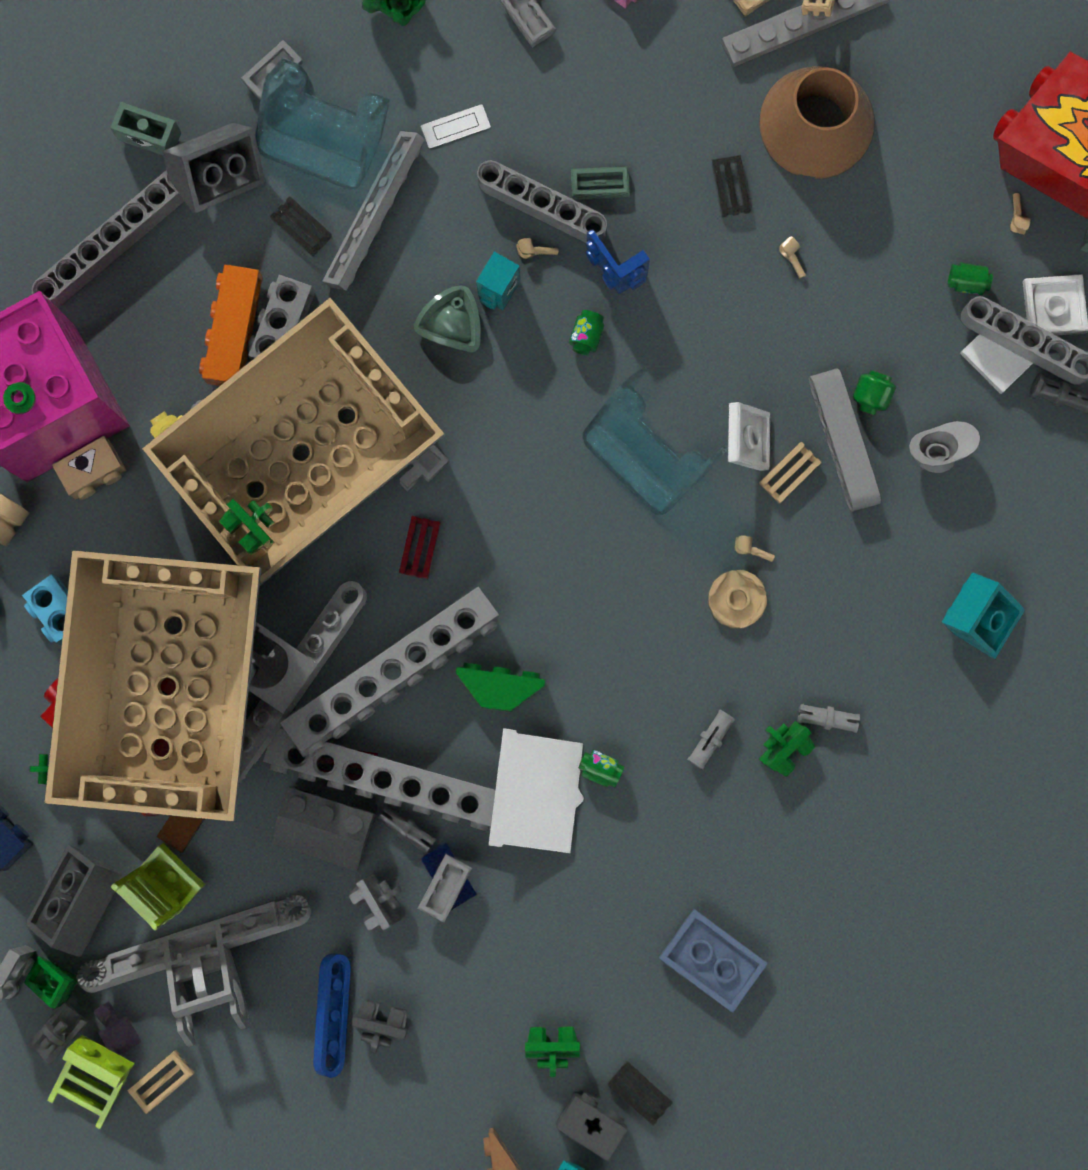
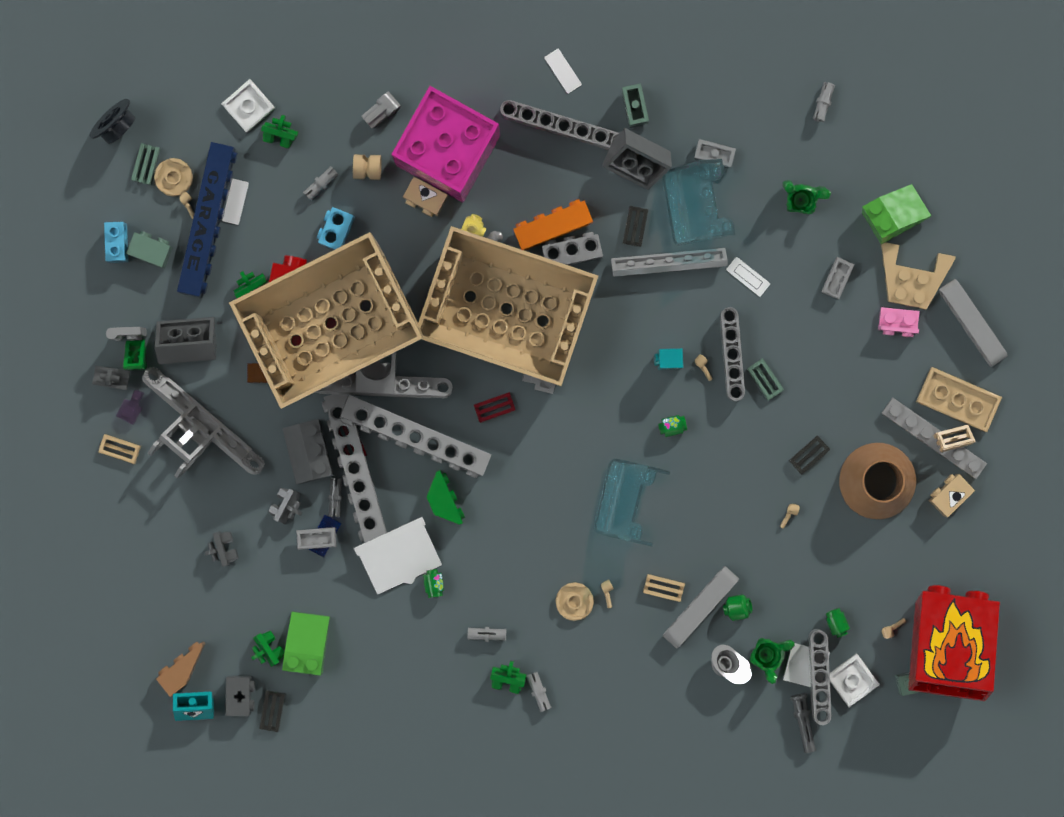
camera: 60 degrees right, 5 degrees up
(28, 400) = (437, 157): green plate -> none
(45, 198) = (563, 71): none -> white sticker
(99, 1063) = (110, 411): lime plate -> none
(159, 887) = (222, 383): lime plate -> none
(238, 516) = (441, 321): green hips -> none
(332, 1015) = (211, 519): blue plate -> none
(451, 320) = (633, 345): sand green hat -> none
(577, 990) = (306, 643): none -> bright green slope
(621, 277) = (721, 432): blue bracket -> none
(713, 960) = (367, 707): sand blue plate -> none
(749, 436) = (668, 553): white tile -> none
(891, 39) = (951, 494): none -> tan brick
(967, 385) = (774, 657): none -> green hair
(983, 614) = (648, 743): teal slope -> none

